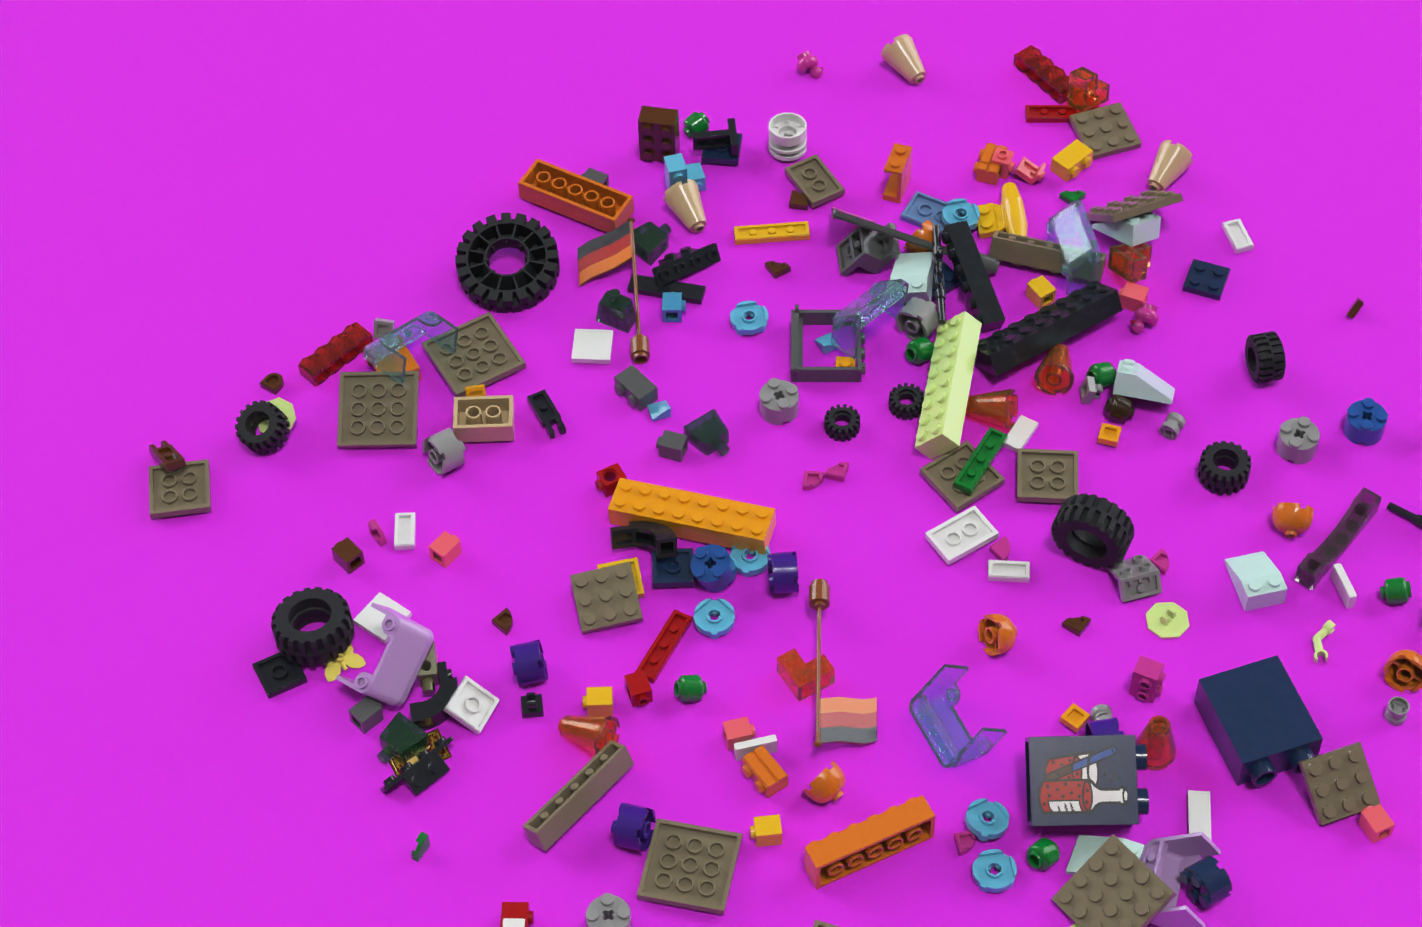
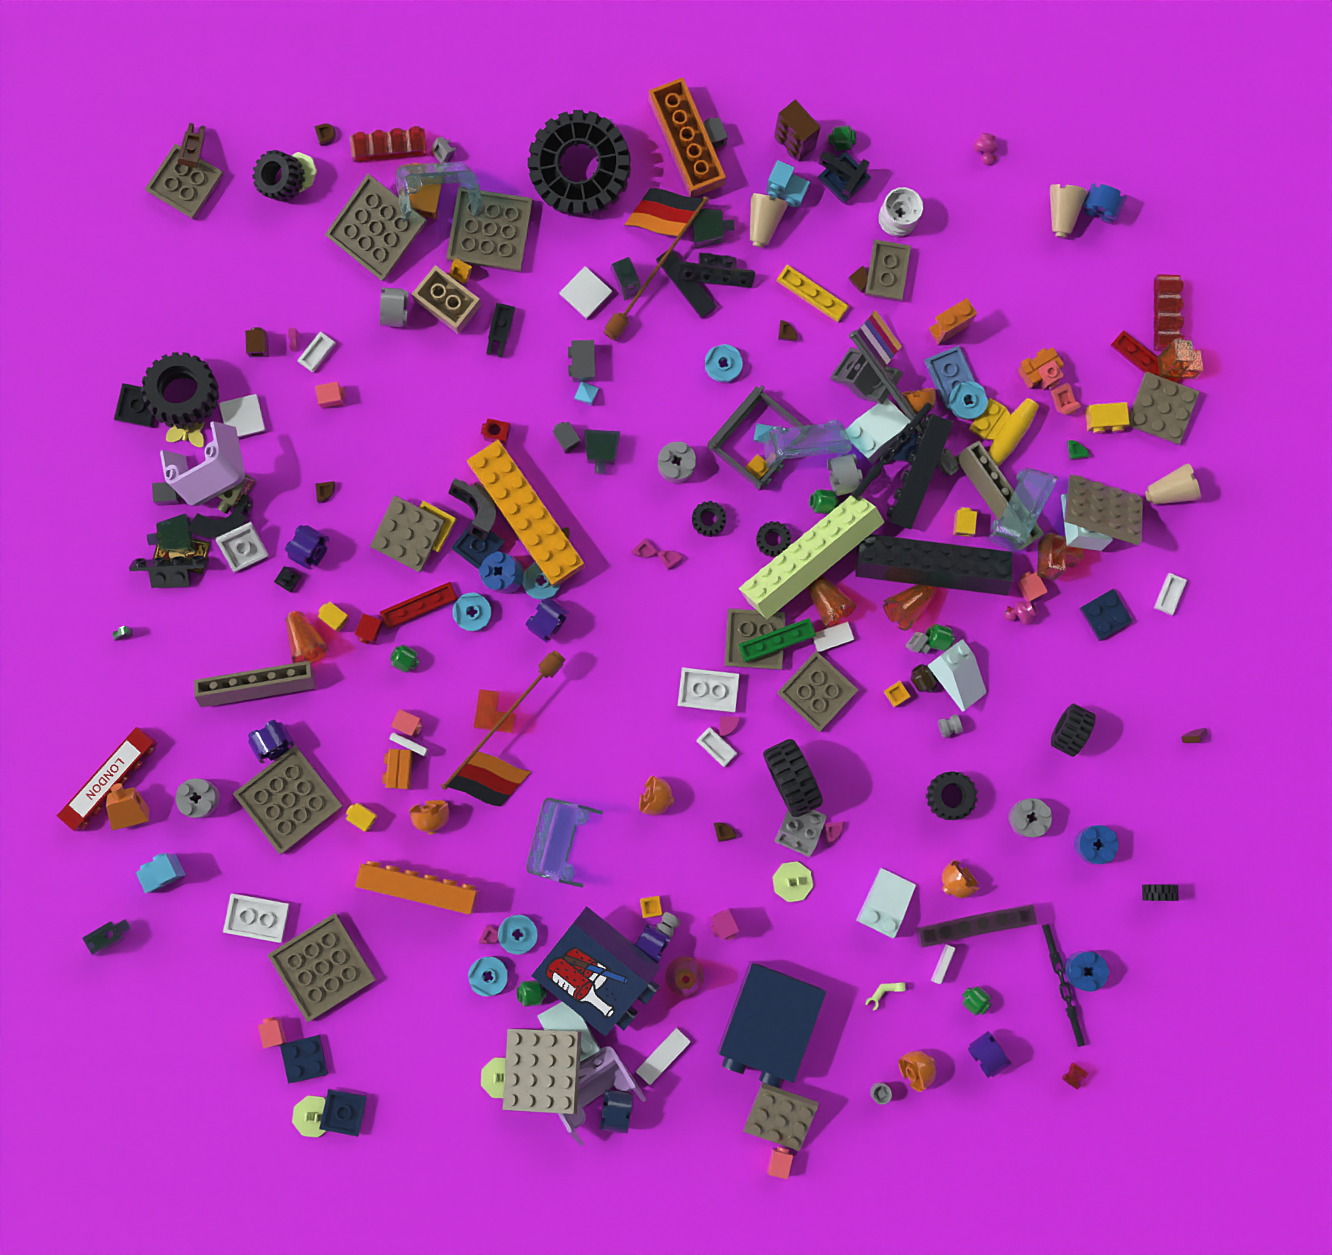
camera: 30 degrees right, 30 degrees up
(673, 306) = (674, 306): dark azure brick -> none
(930, 38) = (1104, 202): none -> blue brick

